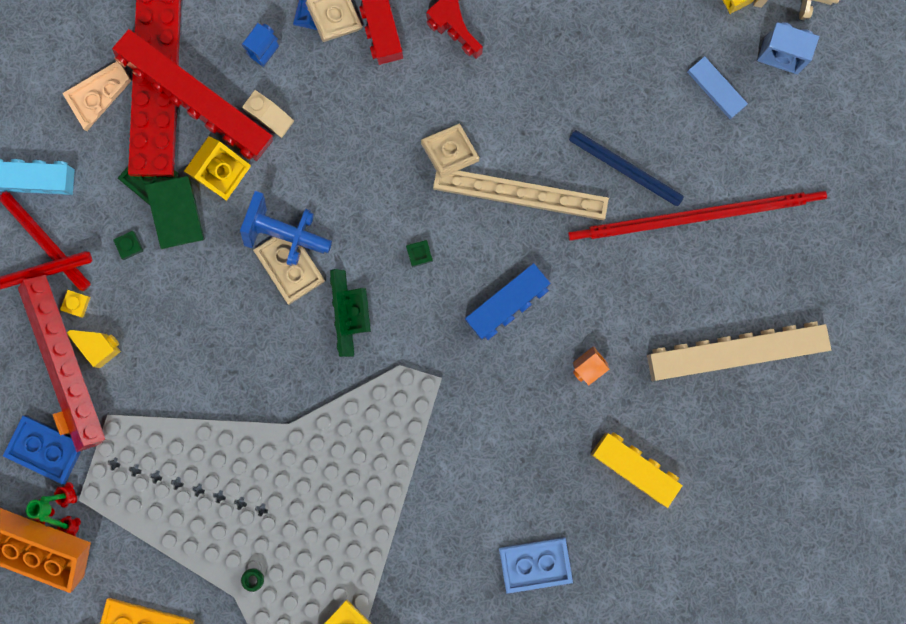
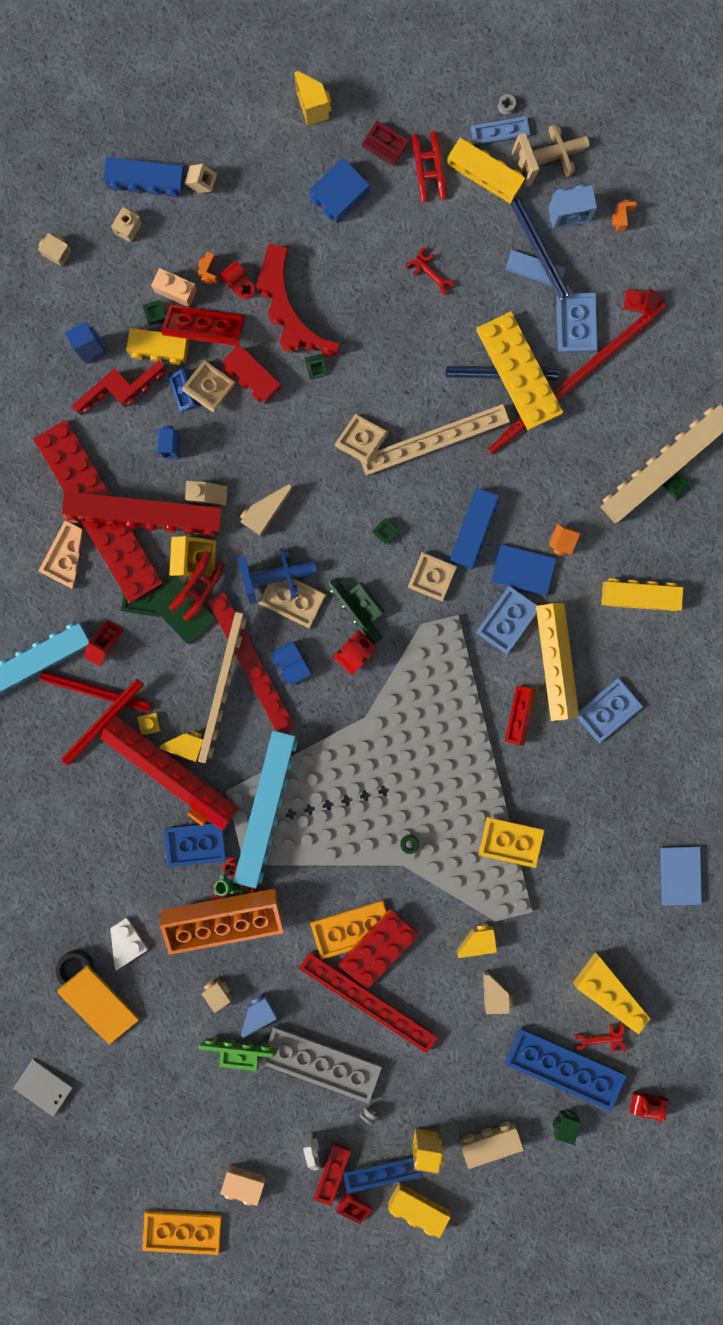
camera: 30 degrees left, 5 degrees up
(79, 198) = (103, 643): none -> red slope
(128, 245) = (161, 656): dark green plate -> none
(129, 456) = (264, 809): none -> medium azure brick
(170, 304) = (225, 679): none -> tan plate
(191, 194) = (188, 589): none -> red piece
(210, 305) = (253, 667): none -> red plate
(248, 328) = (292, 663): none -> blue brick
(309, 165) = (262, 513): none -> tan slope
(315, 353) = (355, 652): none -> red brick
(438, 325) = (432, 577): none -> tan plate
(442, 516) = (520, 715): none -> red plate
(449, 57) = (316, 366): none -> dark green slope
(487, 413) = (507, 620): none -> medium blue plate
(511, 485) = (557, 661): none -> yellow brick
(533, 372) = (523, 570): none -> blue tile
(609, 17) = (421, 262): none -> red bar
(643, 176) = (519, 371): none -> yellow plate
(727, 162) = (577, 323): none -> medium blue plate
(732, 71) = (540, 249): none -> dark blue axle
(735, 381) = (677, 486): none -> dark green slope
(804, 179) = (642, 301): none -> red slope
(829, 86) = (619, 217): none -> orange bracket

